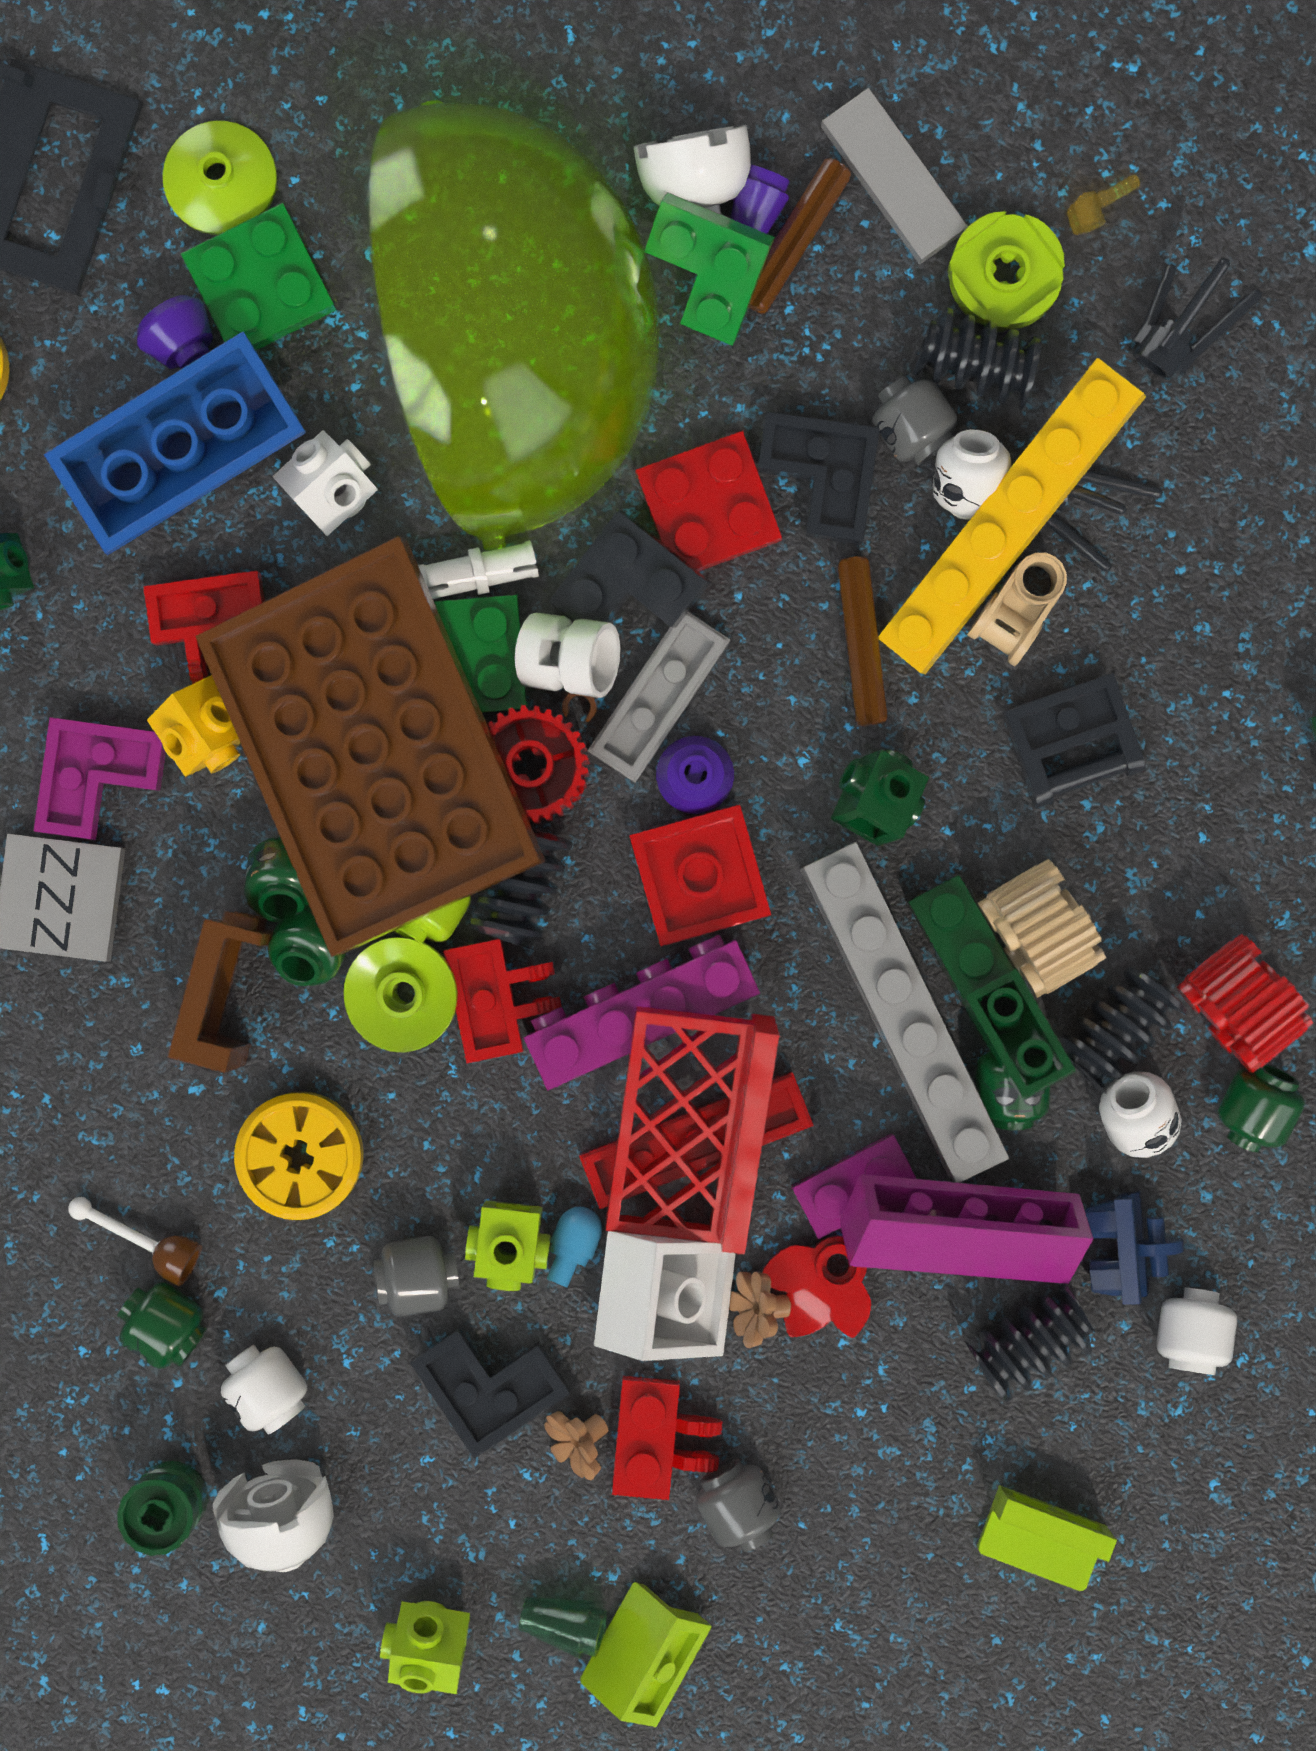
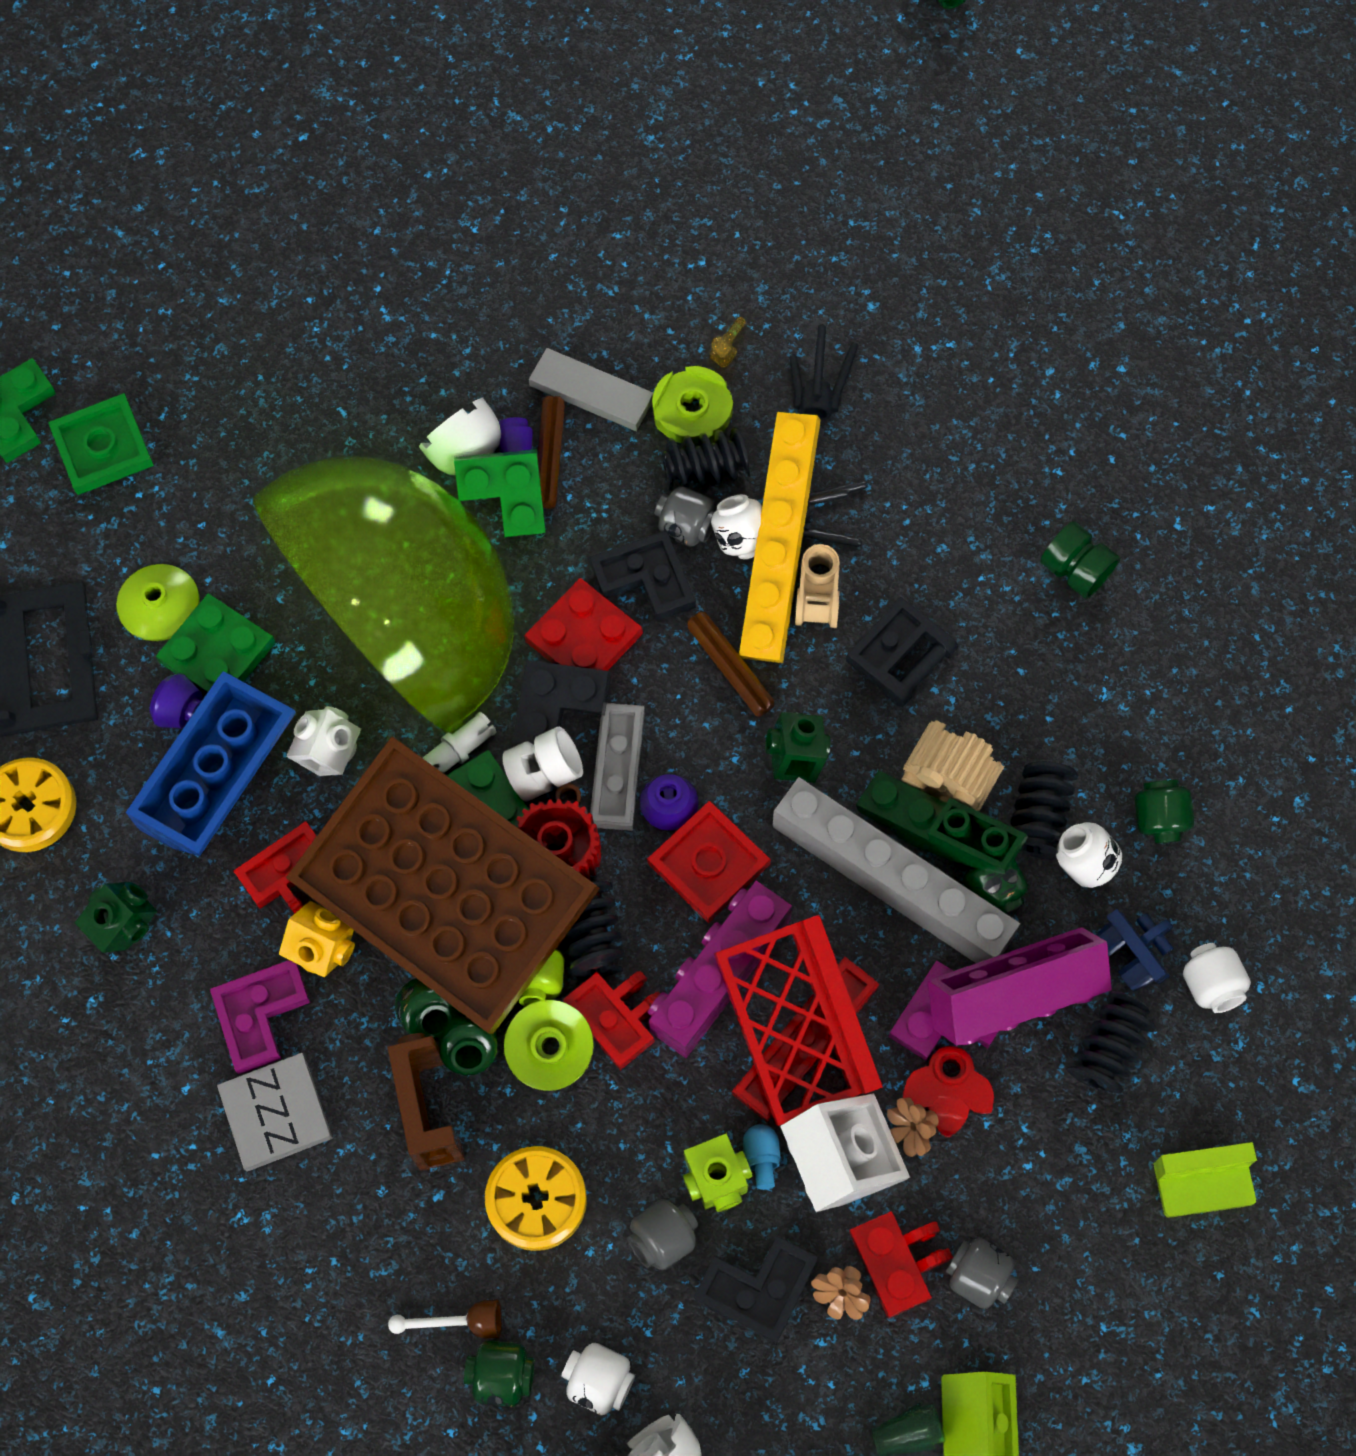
camera: 25 degrees left, 20 degrees down
(1246, 1003) = (1111, 746): red brick -> none

